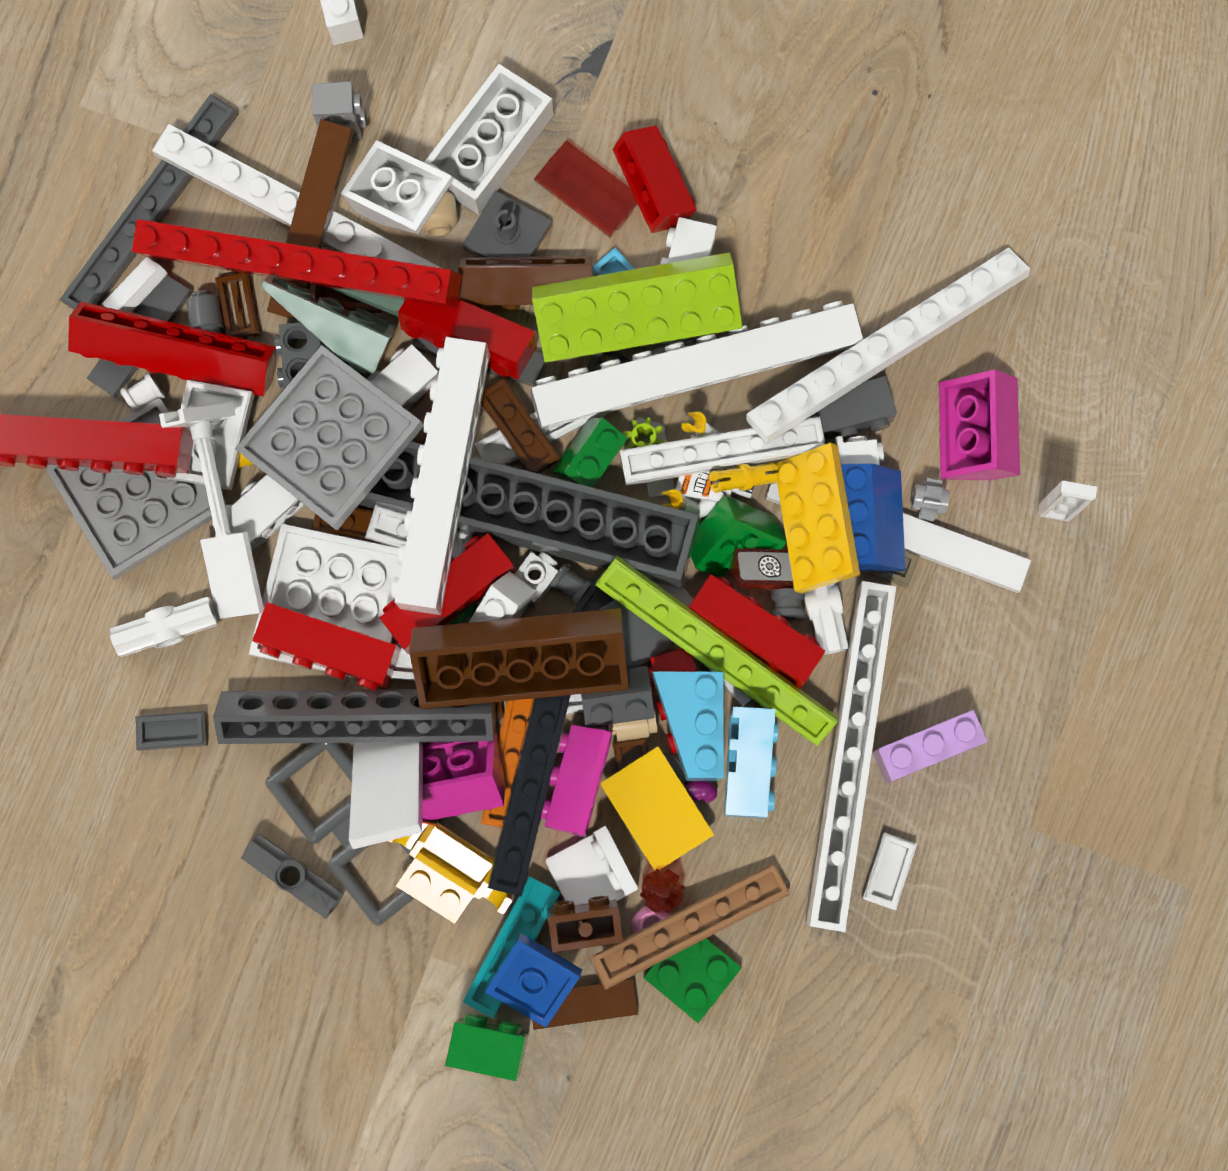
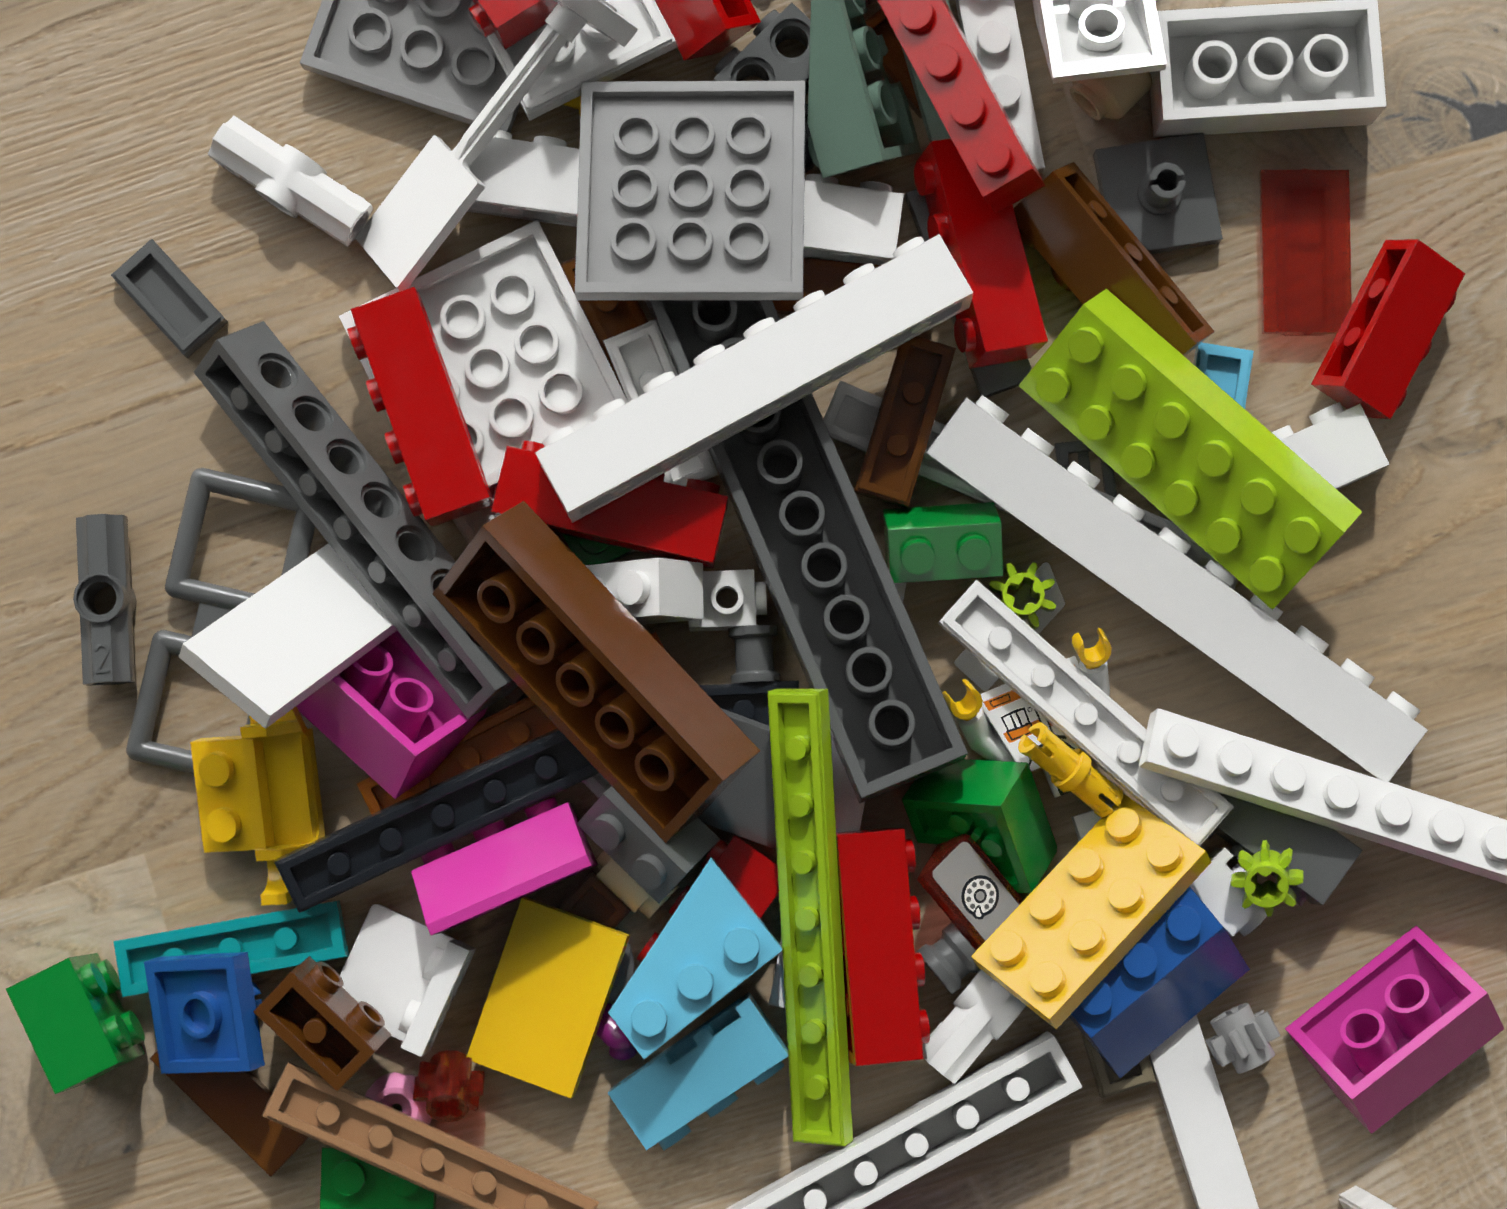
camera: 50 degrees right, 5 degrees up
(858, 420) = (1268, 894): none -> lime gear

